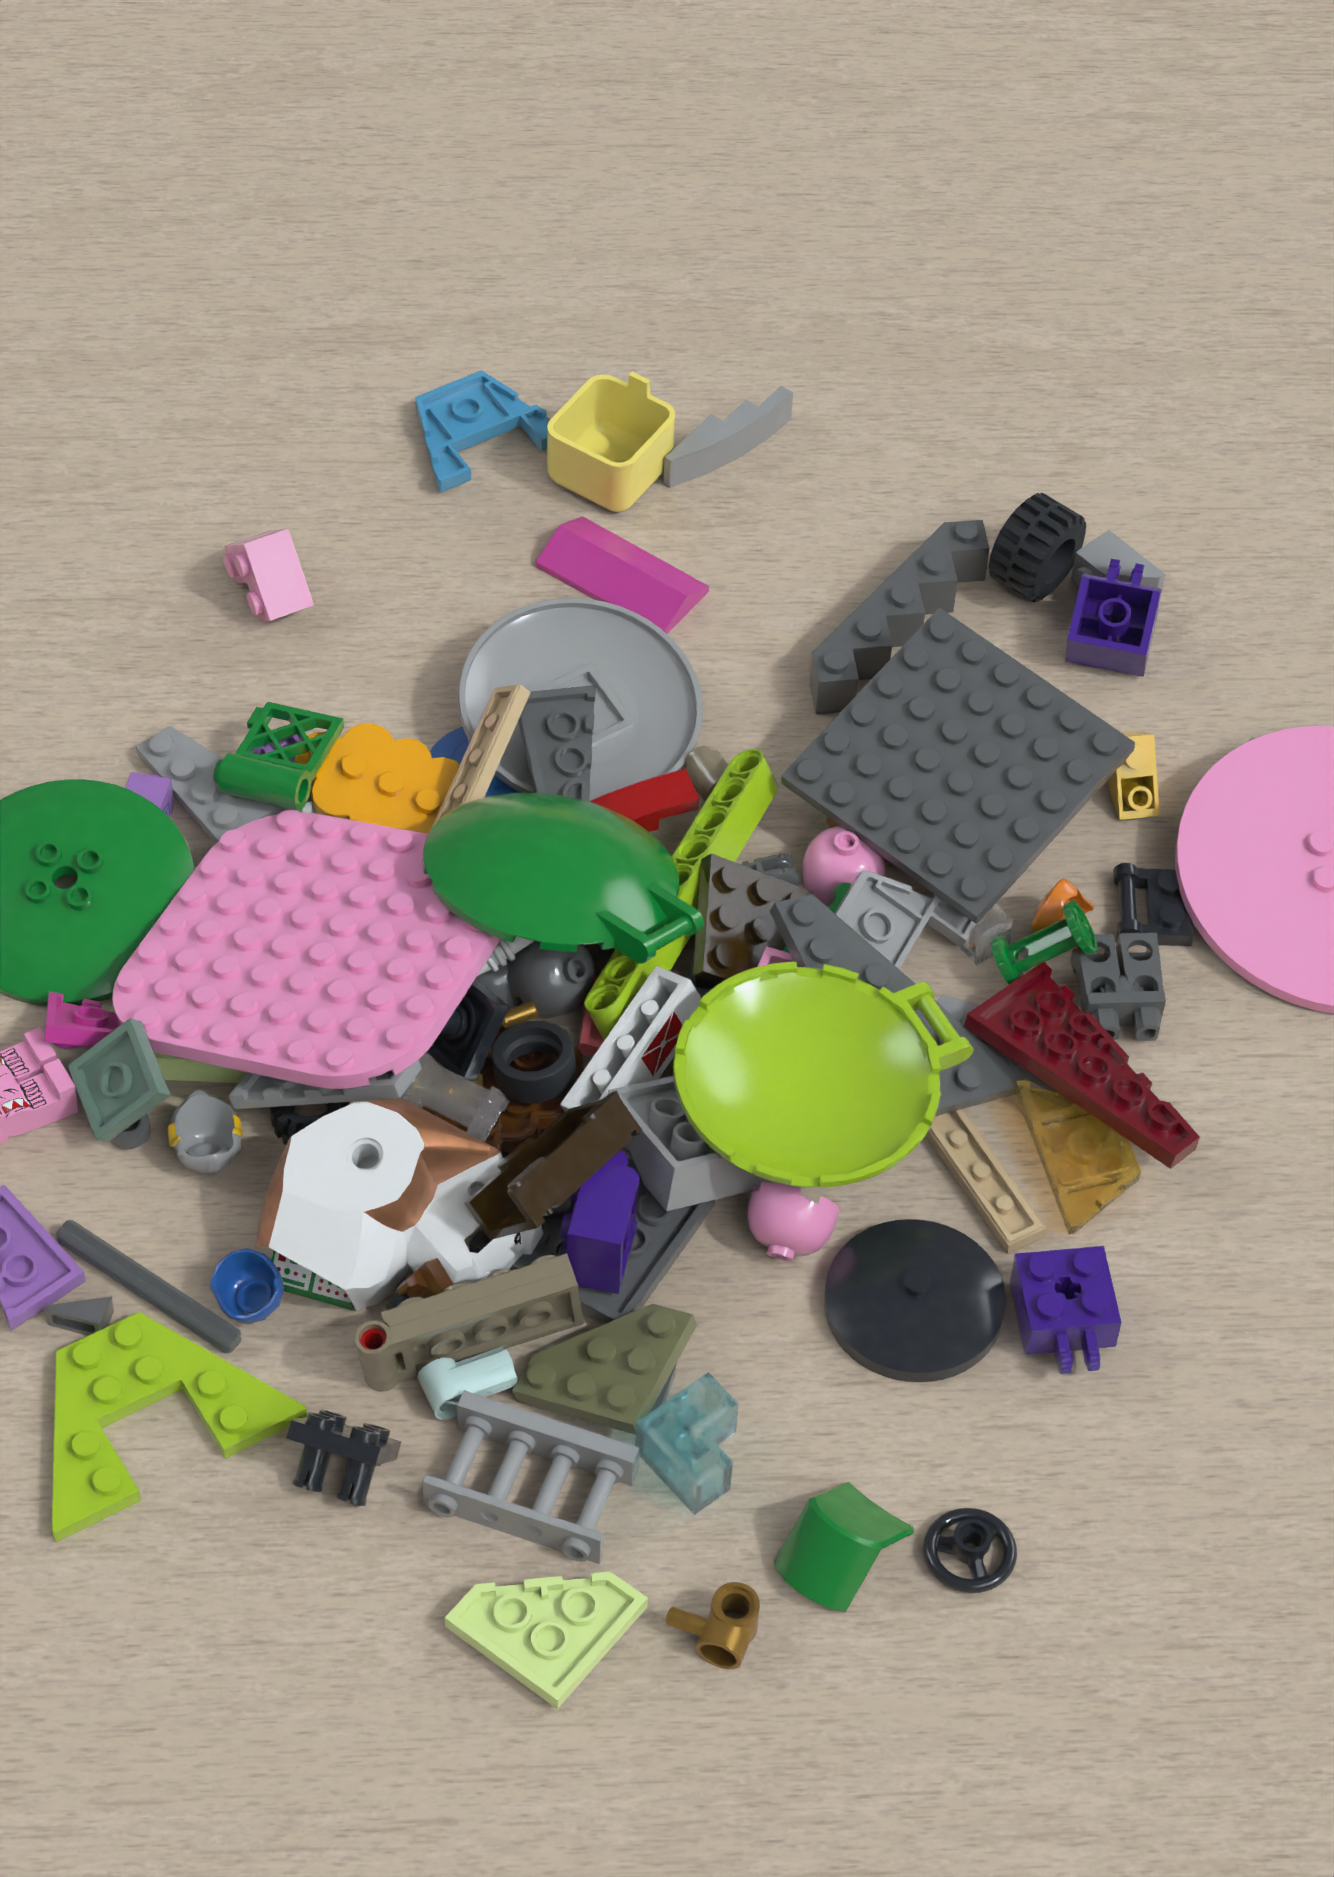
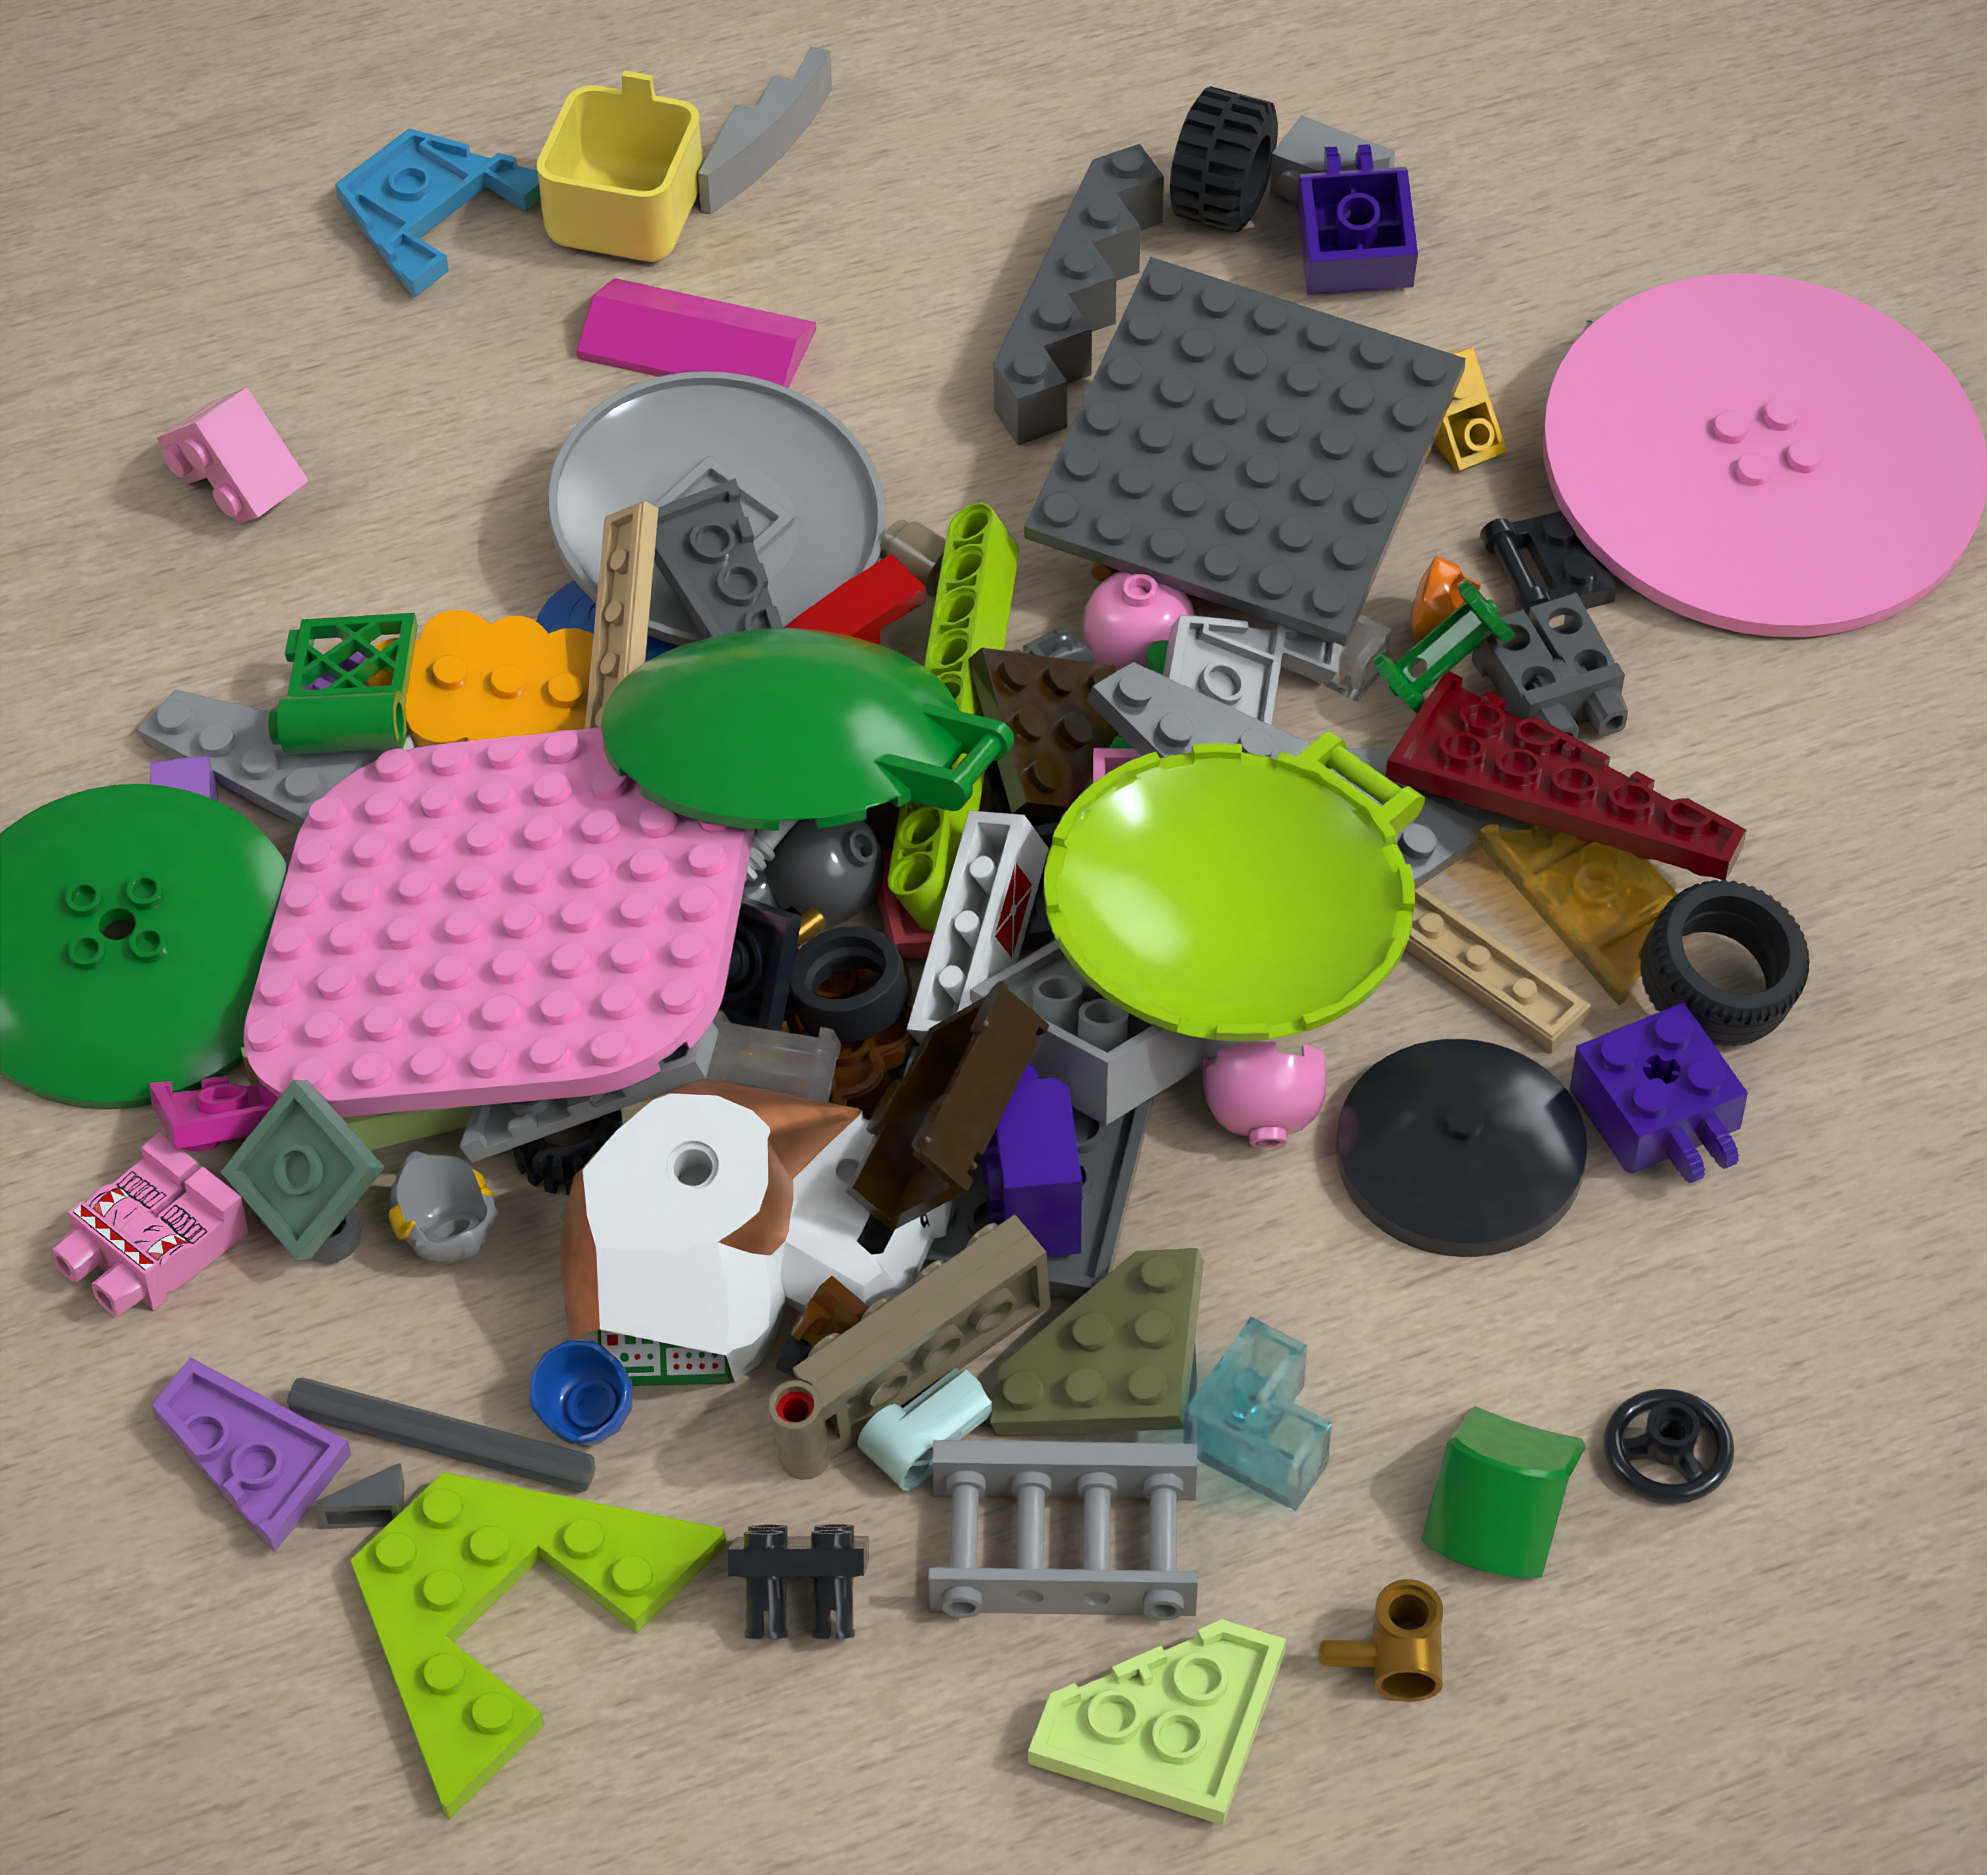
camera: 15 degrees left, 0 degrees up
(1173, 1195) = (1753, 922): none -> black tyre

